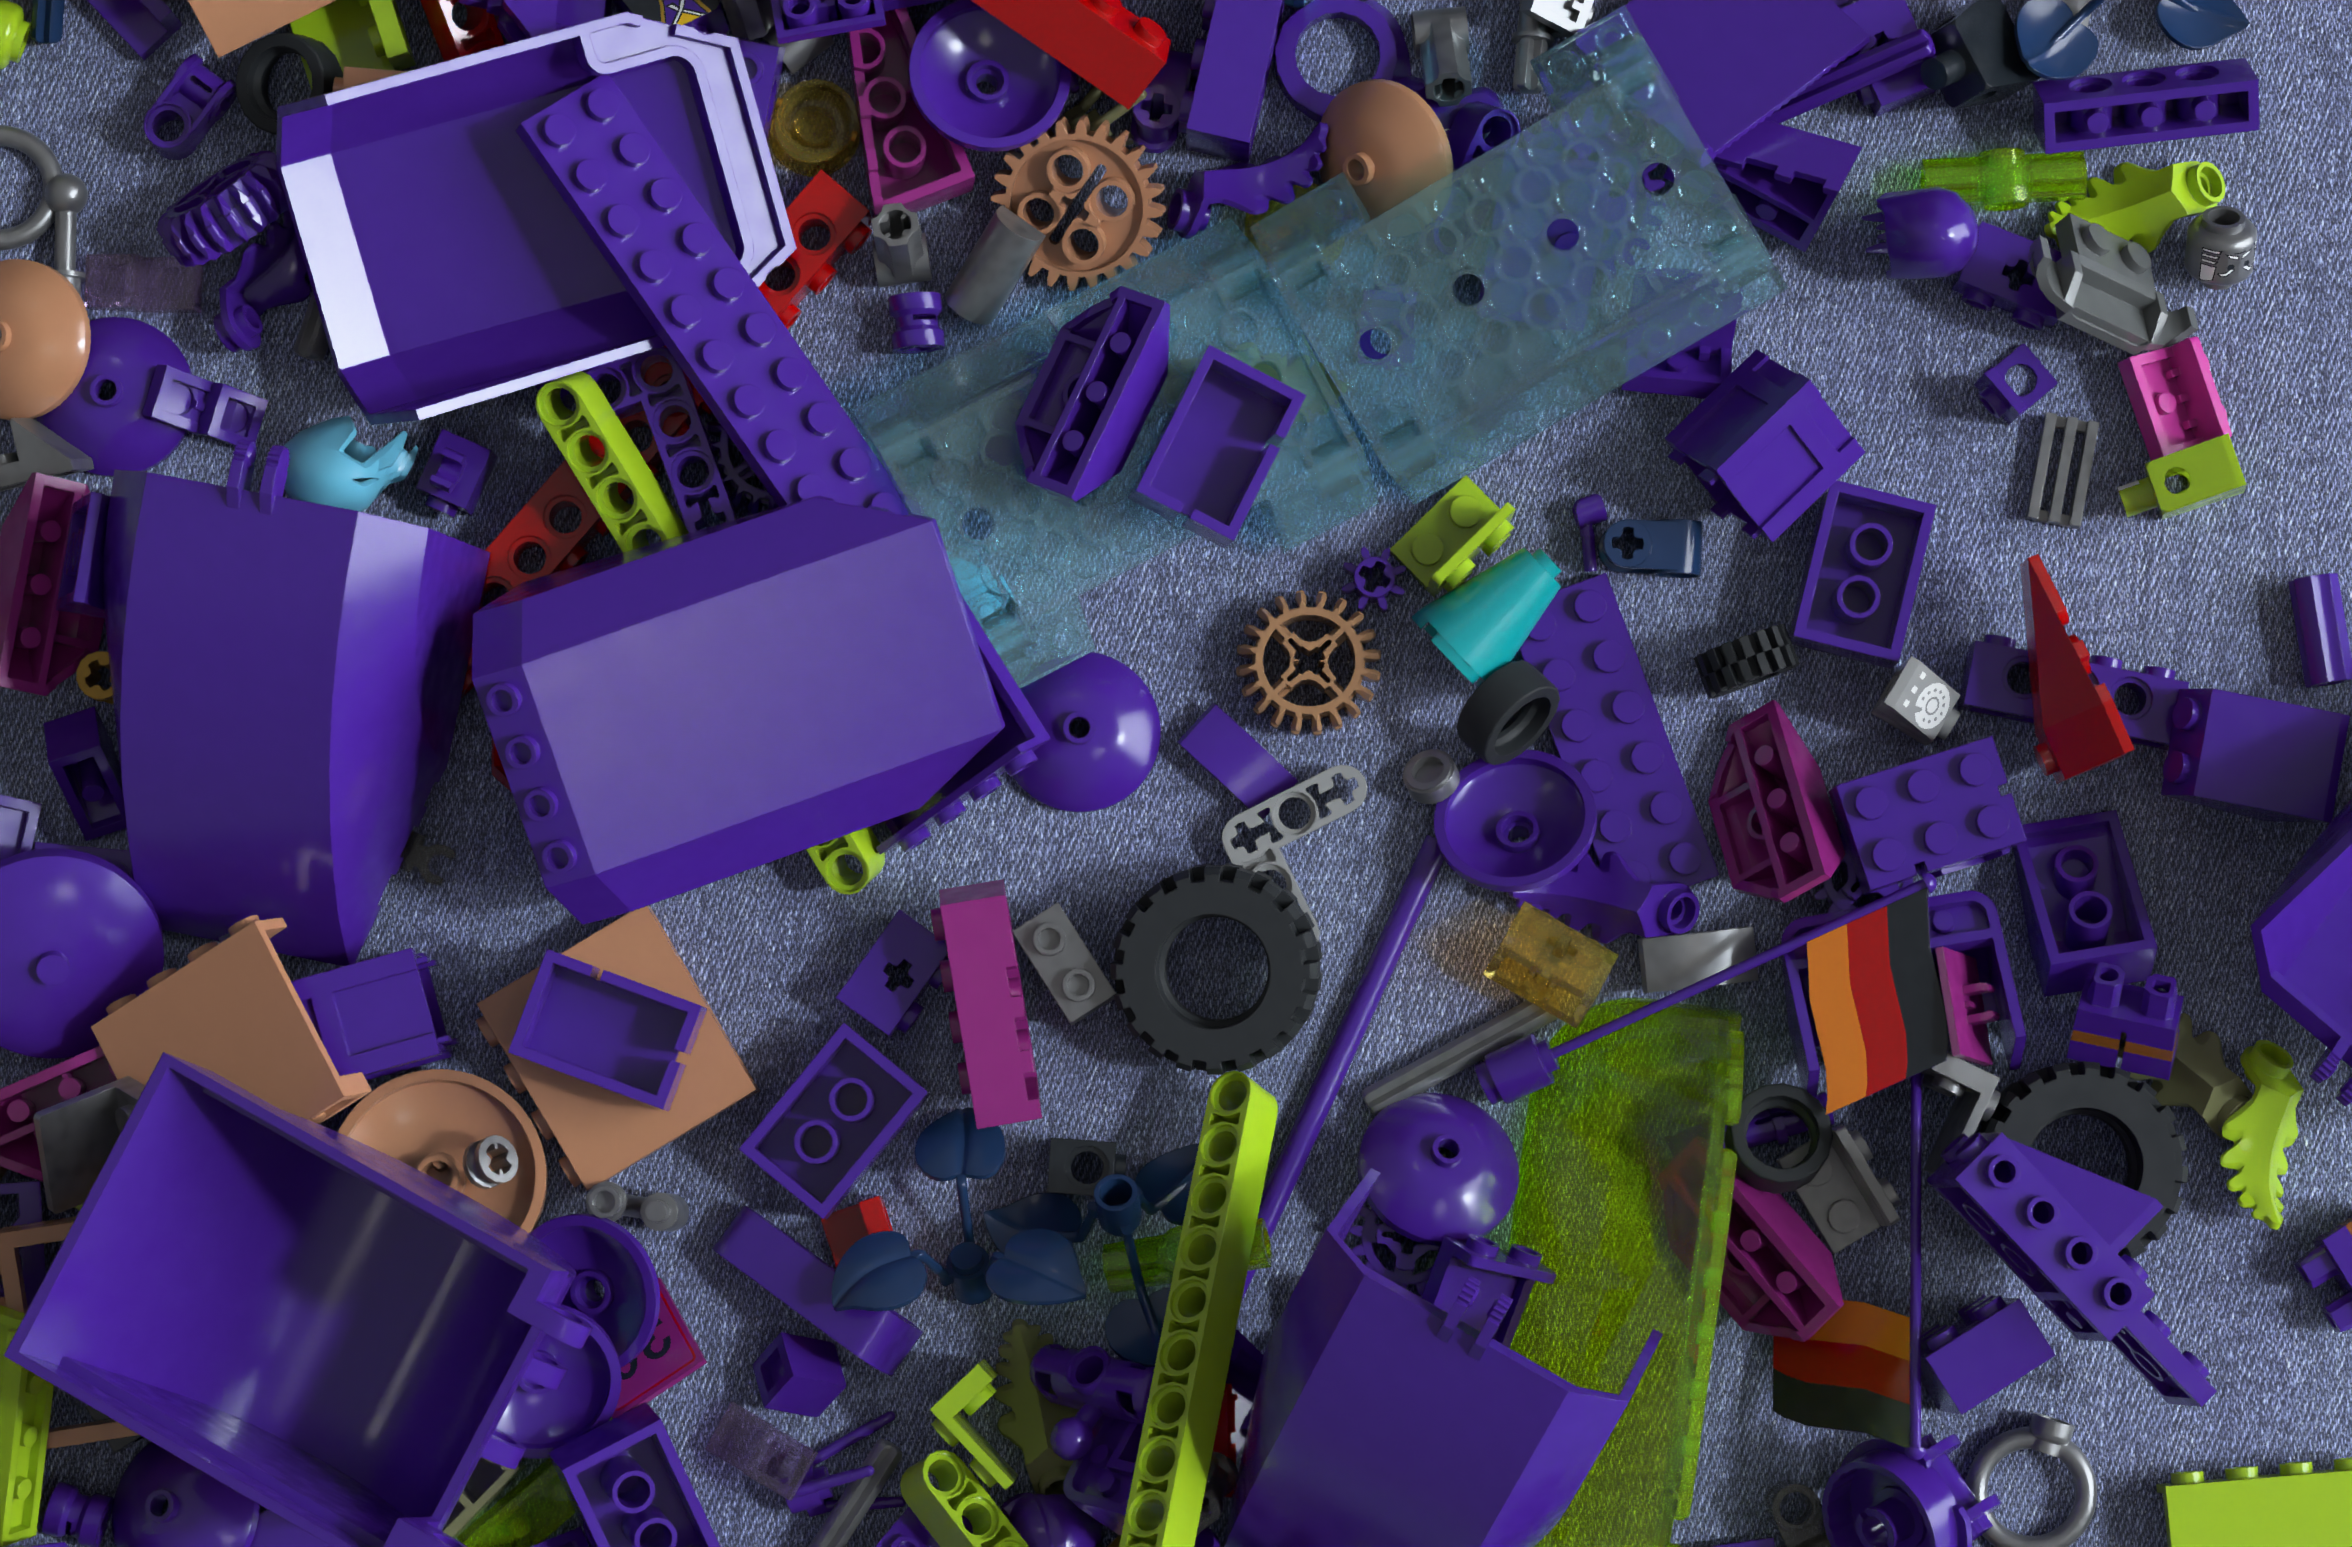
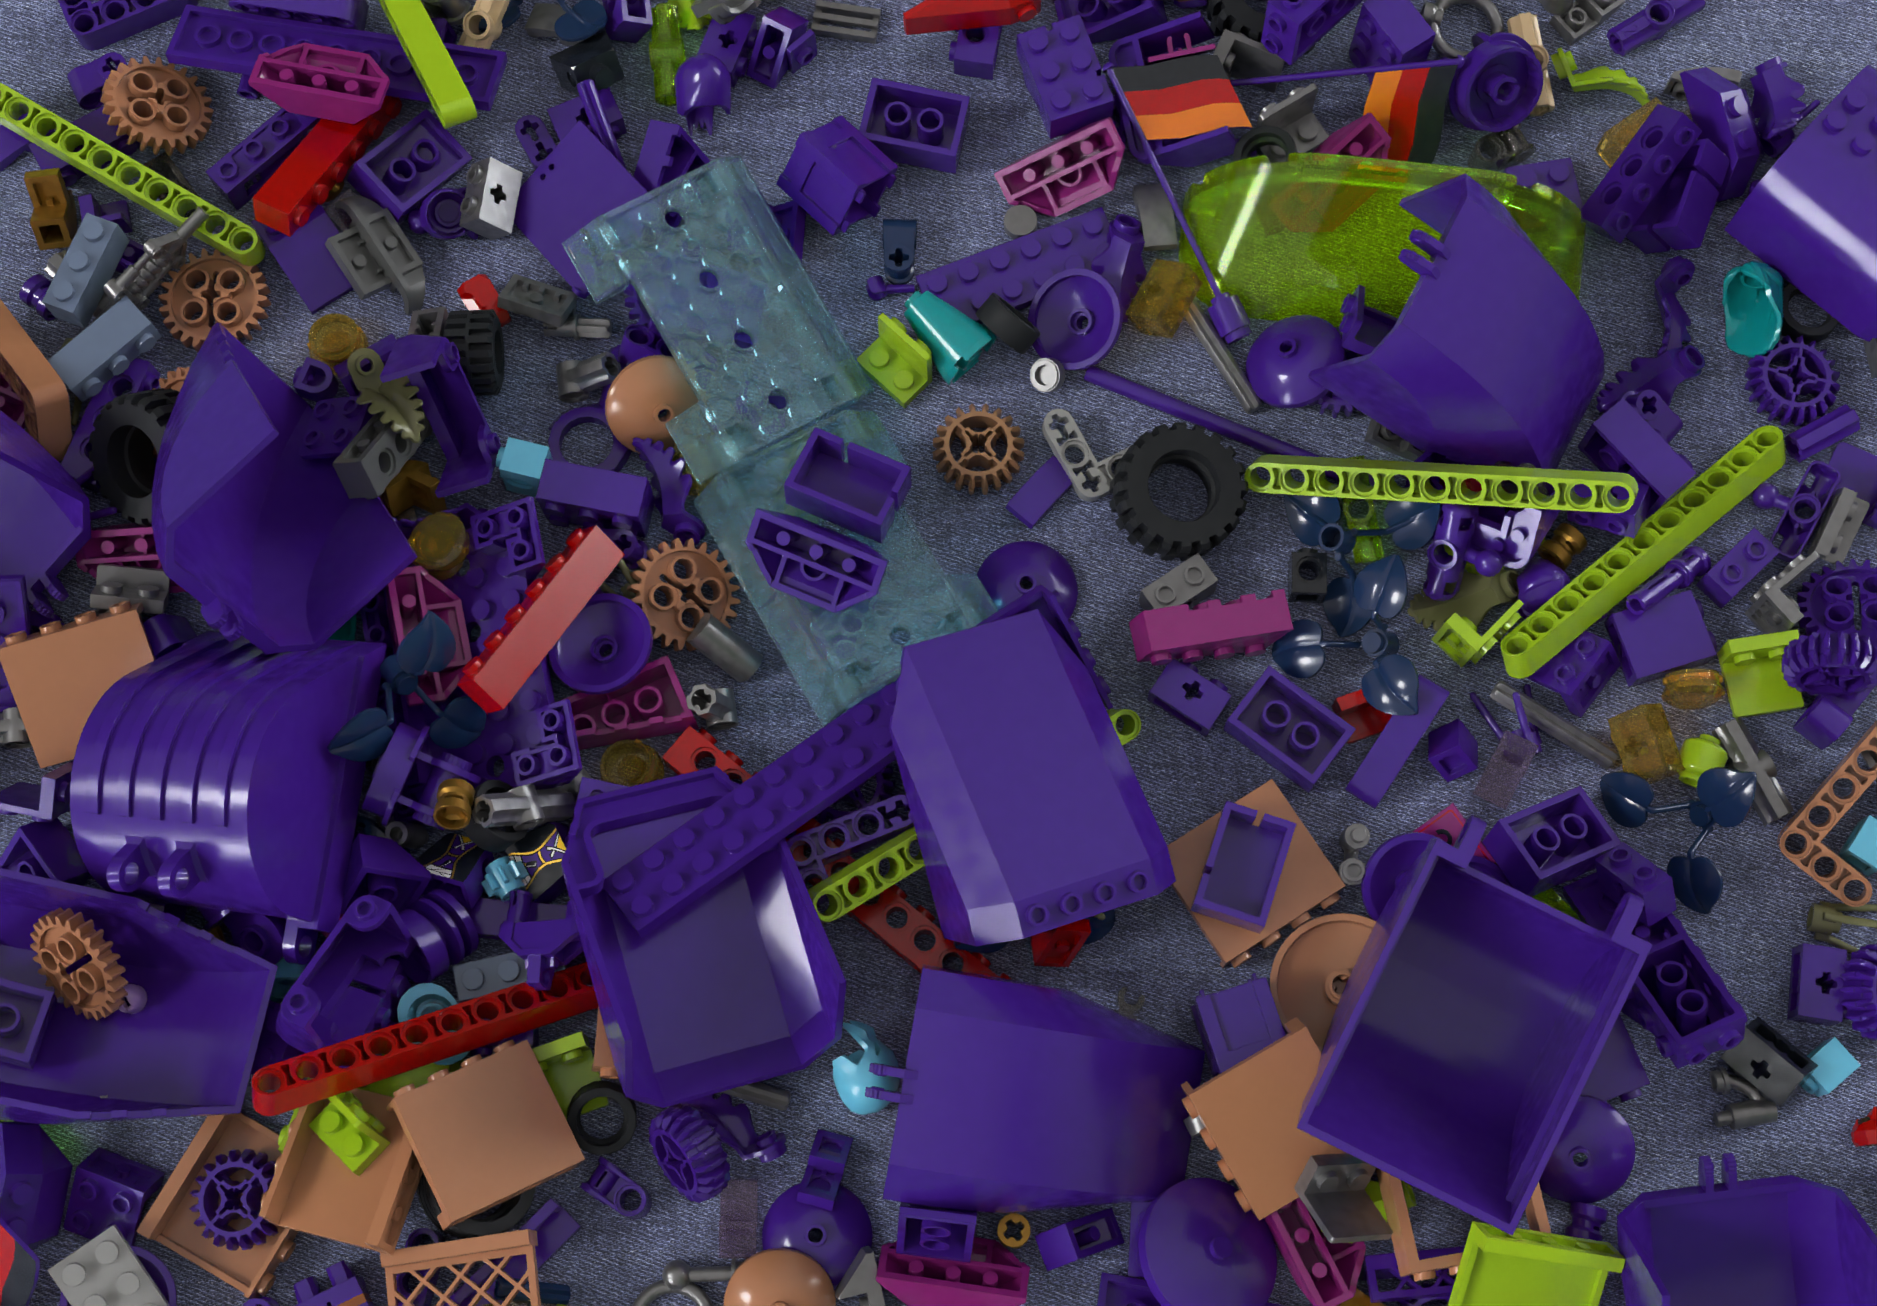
camera: 90 degrees left, 10 degrees down
(455, 474) = (869, 995): dark purple brick -> none
(477, 1162) = (1331, 948): flat silver bush -> none
(916, 322) = (762, 698): dark purple wheel -> none
(1380, 593) = (919, 404): dark purple gear -> none
(1698, 743) = (1020, 221): none -> flat silver tile
(1746, 661) = (970, 188): black tyre -> none
(1918, 703) = (991, 95): light grey slope -> none
(2021, 353) = (775, 34): none -> dark purple slope

